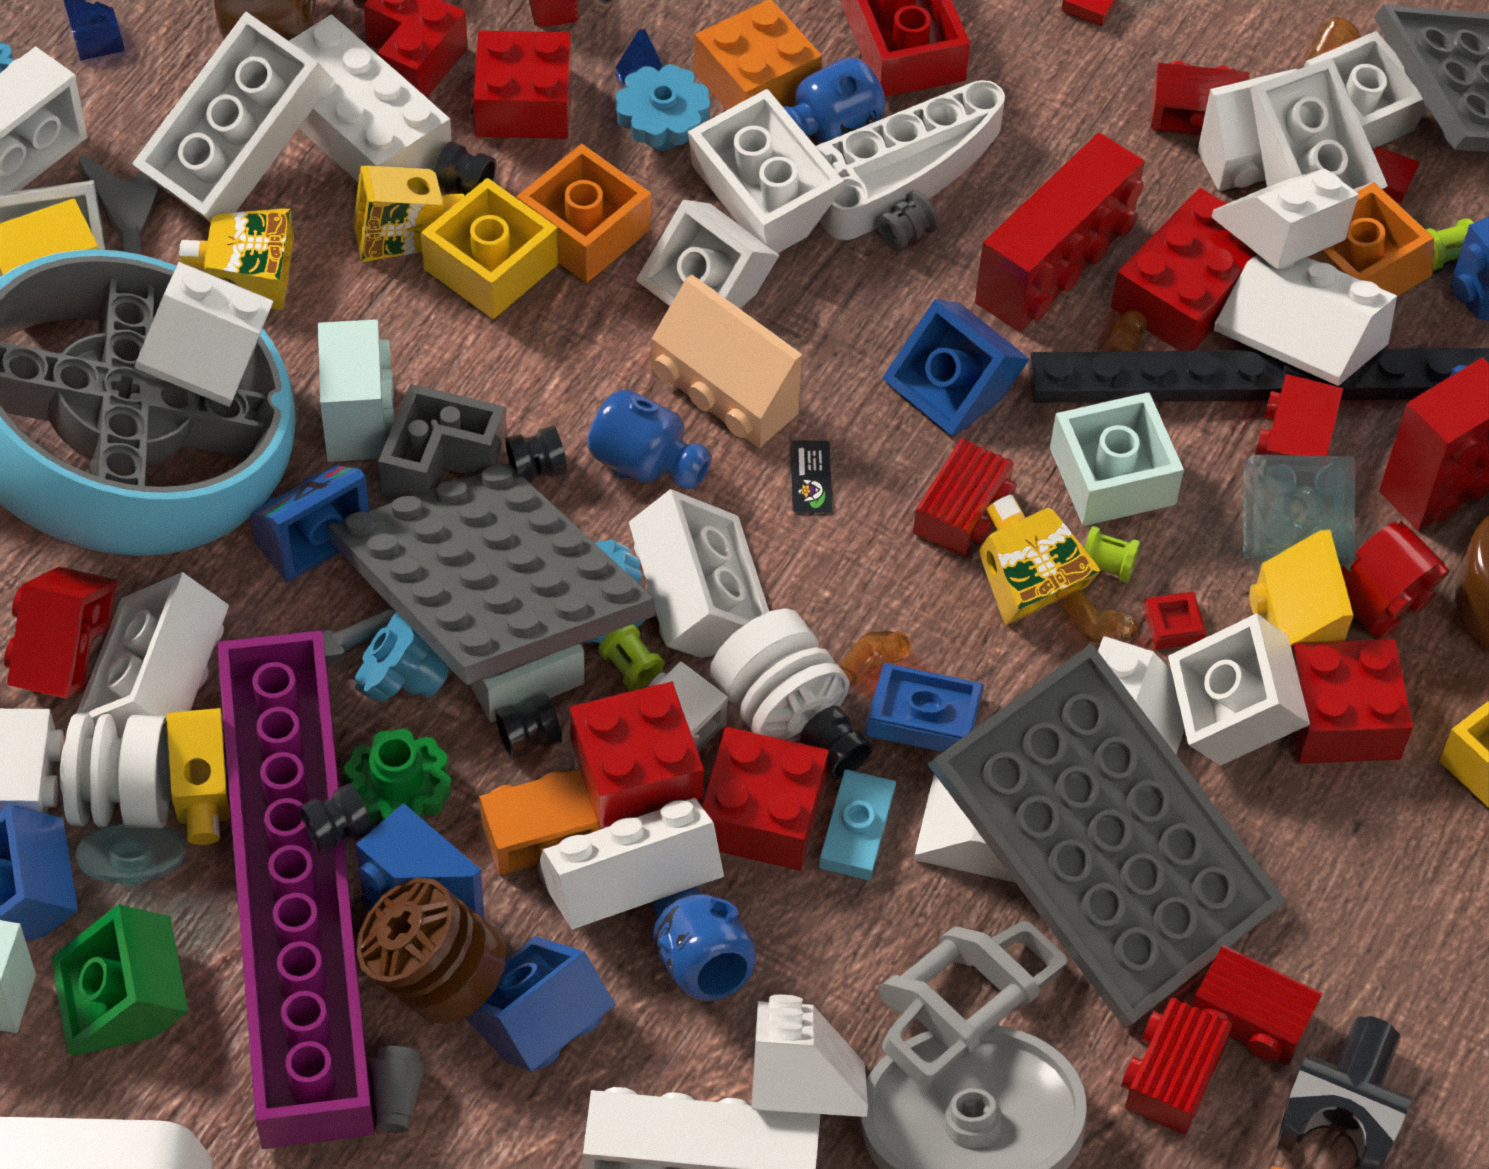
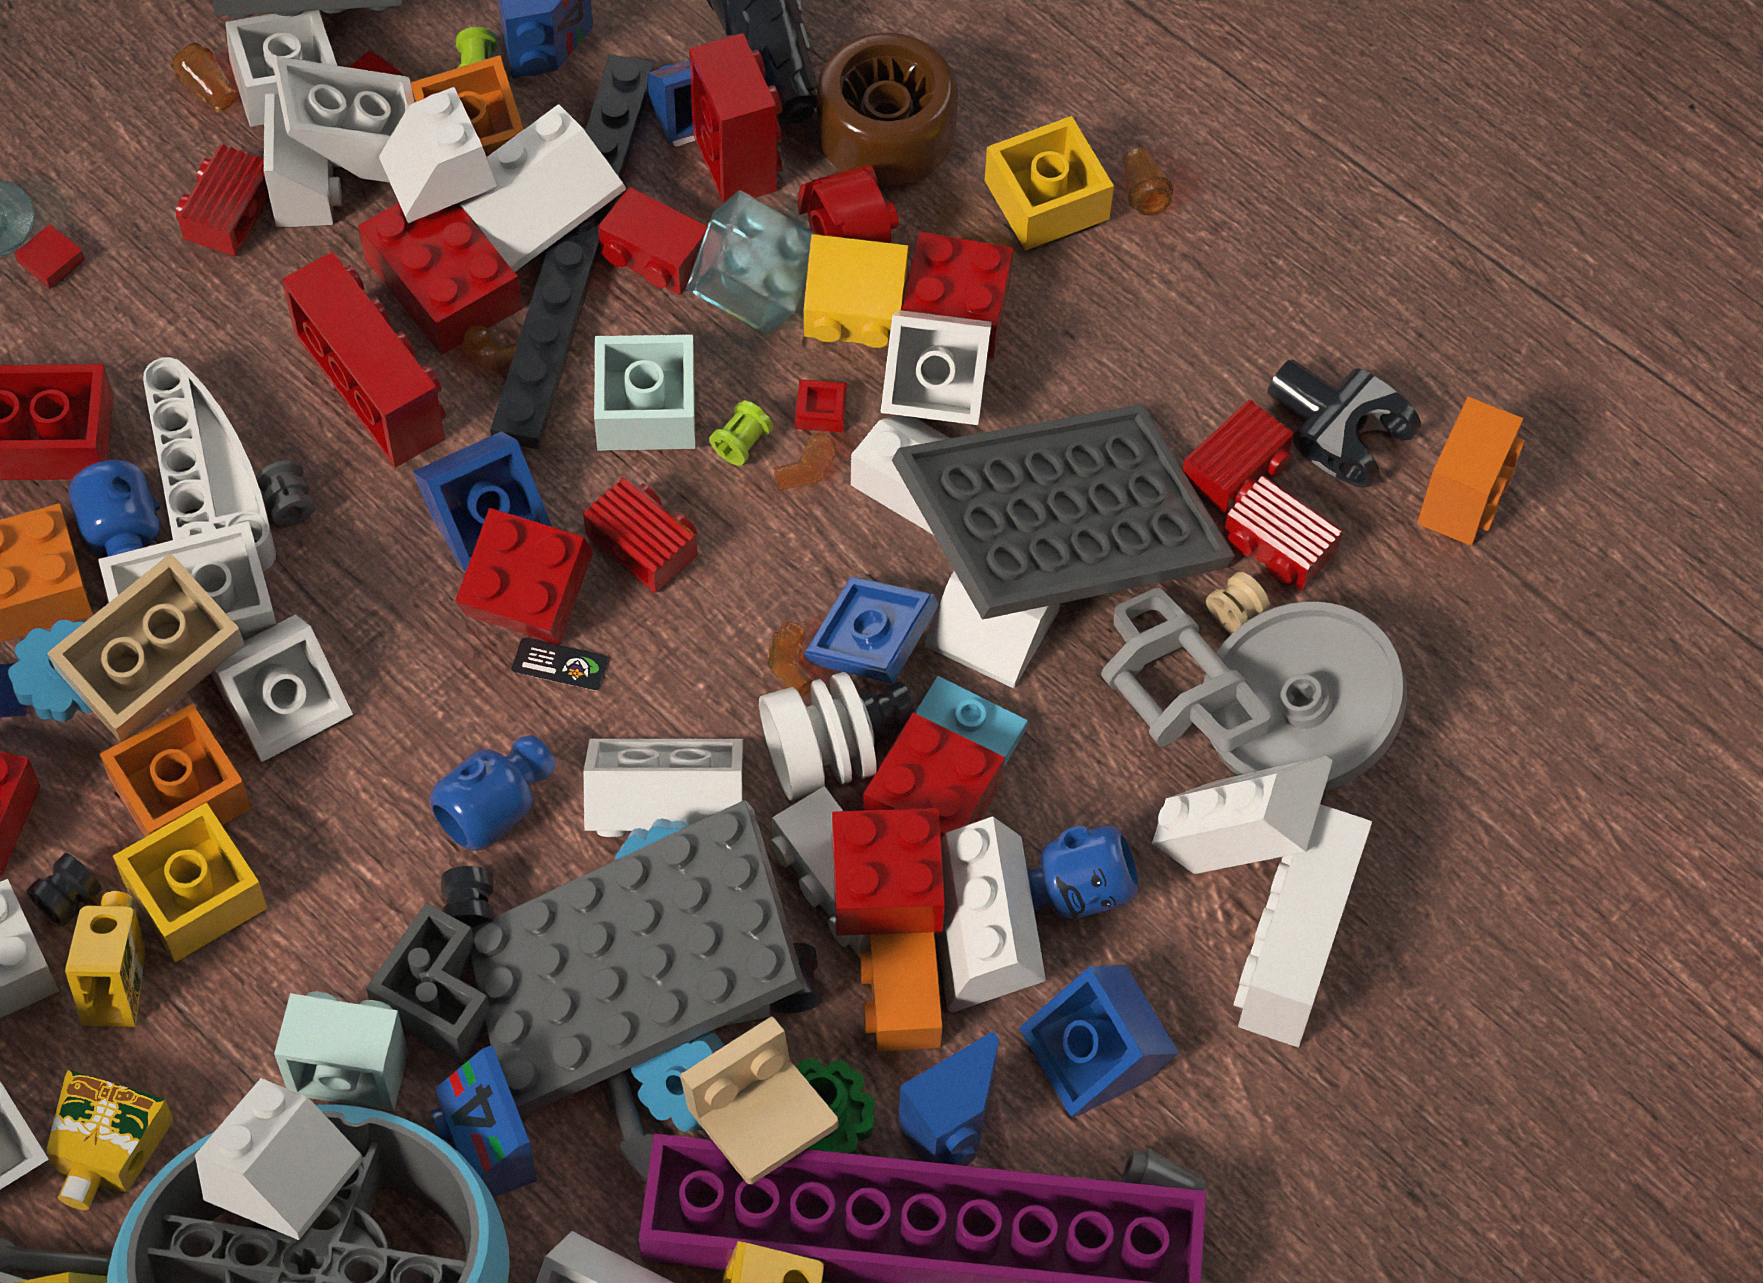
camera: 75 degrees left, 5 degrees up
(334, 819) = (899, 1153): black wheel -> none
(363, 692) = (756, 1102): none -> tan bracket
(431, 951) = (1066, 1079): reddish brown wheel -> none
(679, 134) = (146, 648): none -> tan brick
(727, 363) = (422, 693): light nougat slope -> none
(875, 411) = (524, 576): none -> red brick
(1032, 560) = (738, 495): torso -> none
(1076, 1036) = (1237, 602): none -> tan wheel

